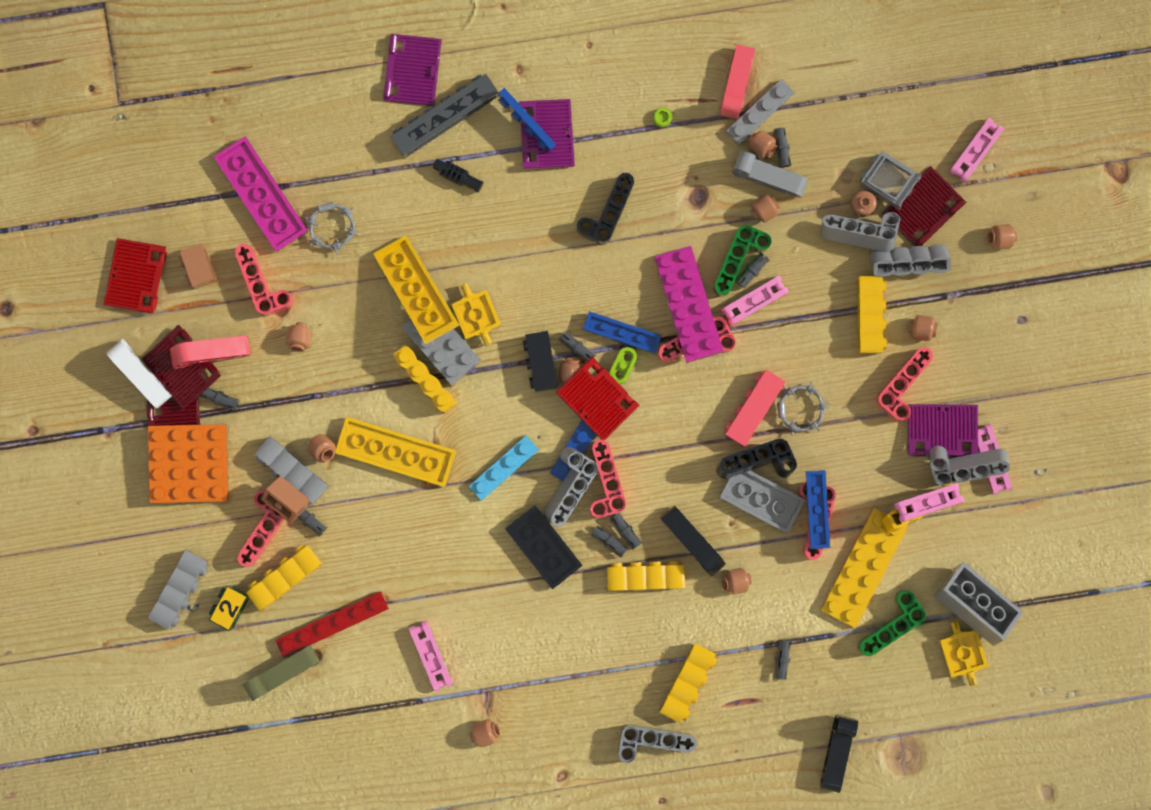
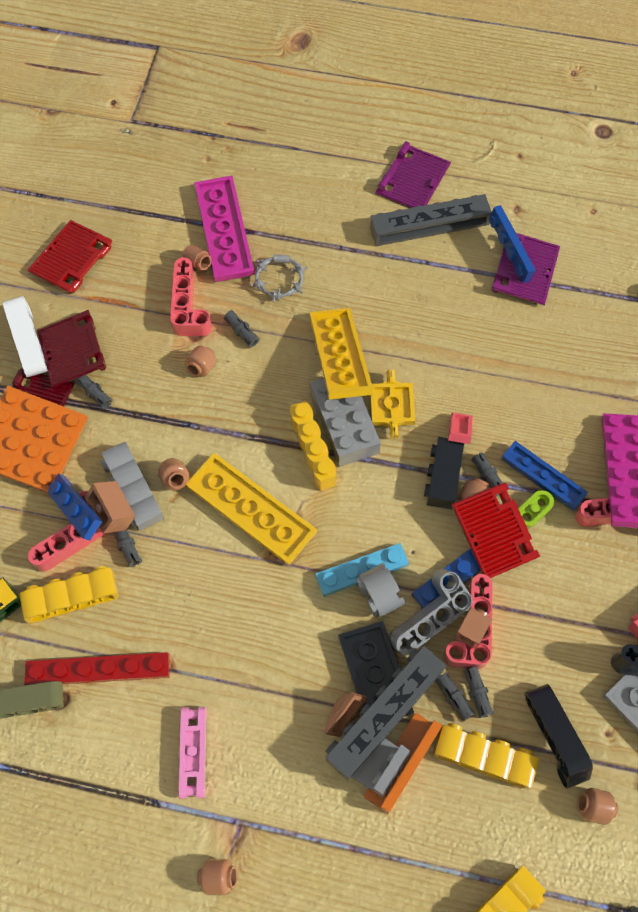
camera: 20 degrees right, 20 degrees down
(197, 266) = (133, 266): nougat brick -> none
(209, 350) = (104, 336): coral beam -> none
(251, 236) = (200, 259): none -> nougat brick
(256, 509) = (74, 507): none -> blue plate
(319, 291) = (241, 328): none -> dark grey pin
(457, 175) = (422, 273): black hinge -> none
(524, 482) = (381, 590): none -> light grey brick
(530, 586) = (343, 713): none -> nougat slope
(540, 317) = (460, 428): none -> coral tile
(562, 575) = (385, 713): none -> dark grey brick
(567, 612) = (382, 767): none -> light grey bracket
(586, 603) = (417, 738): none -> orange panel
(605, 487) = (473, 627): none -> nougat brick
(610, 207) = (550, 364): black beam -> none

